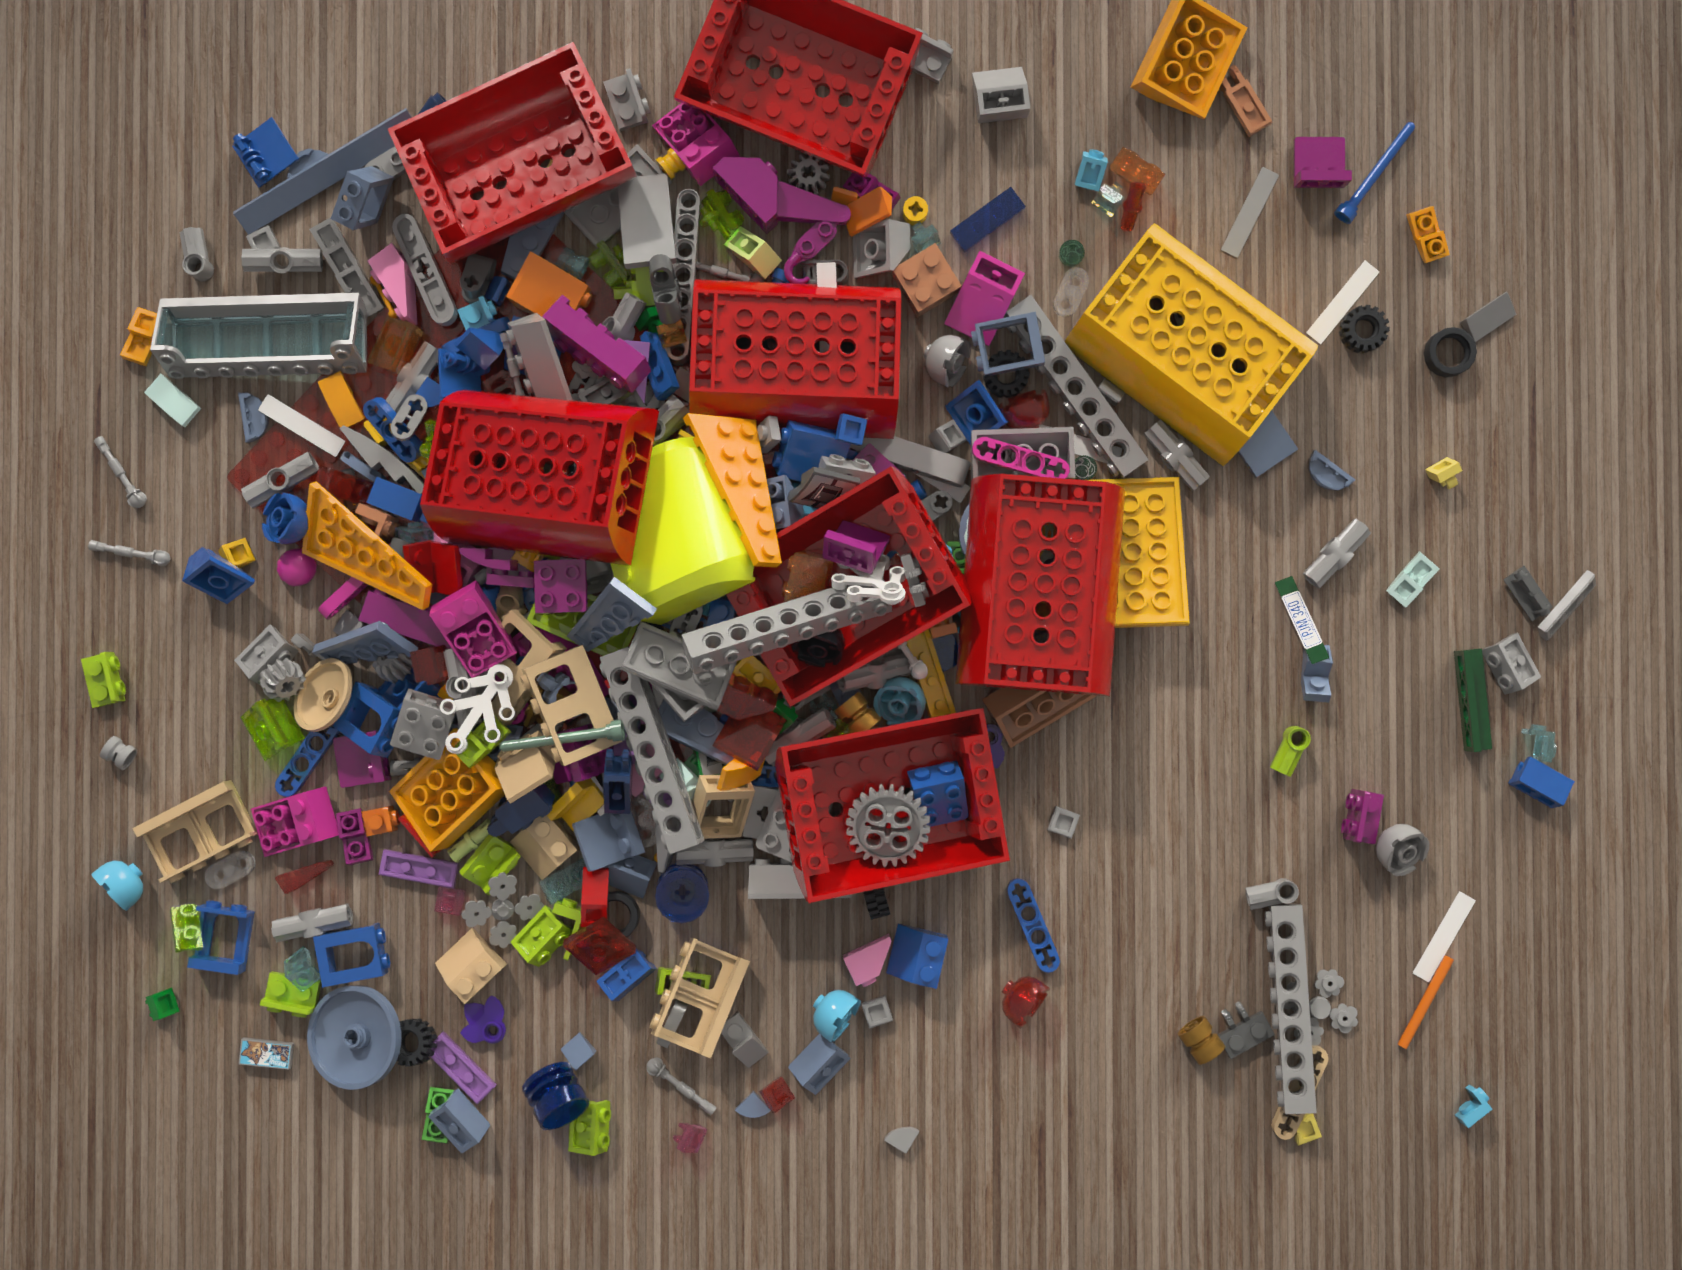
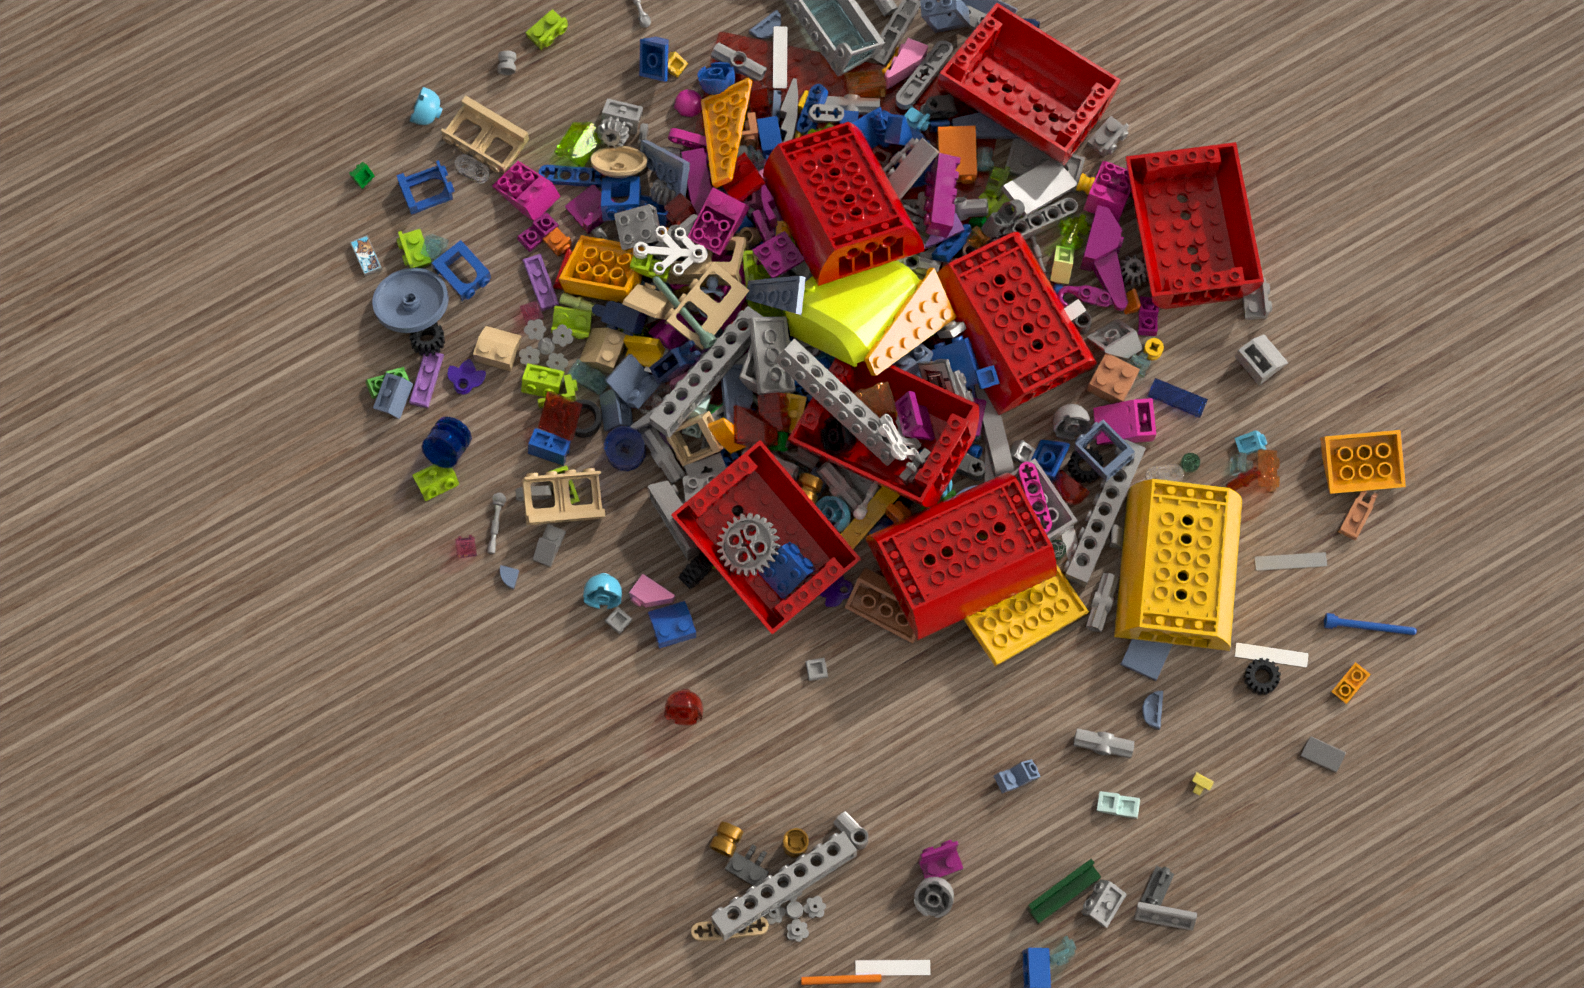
camera: 55 degrees right, 15 degrees down
(186, 928) = (421, 161): clear neon green hips -> none
(297, 878) = (493, 213): clear red slope -> none
(312, 922) = (468, 236): light grey piece -> none
(341, 399) = (811, 70): light orange slope -> none
(578, 1051) = (480, 446): sand blue slope -> none
(594, 895) = (592, 393): red slope -> none
(777, 1094) = (526, 586): clear red tile -> none
(818, 1064) = (562, 602): sand blue panel -> none
(869, 210) = (1134, 318): orange slope -> none
(902, 1138) = (544, 684): light grey tile -> none
(1030, 926) = (738, 689): blue beam -> none
(1250, 966) = (795, 842): none -> pearl gold wheel
(1289, 753) = (952, 788): lime piece -> none
(1302, 620) = (1046, 745): sticker -> none
(1307, 1130) = (707, 949): light yellow tile -> none
(1320, 163) = (1351, 585): magenta bracket -> none
(1469, 352) = (1286, 727): black tyre -> none

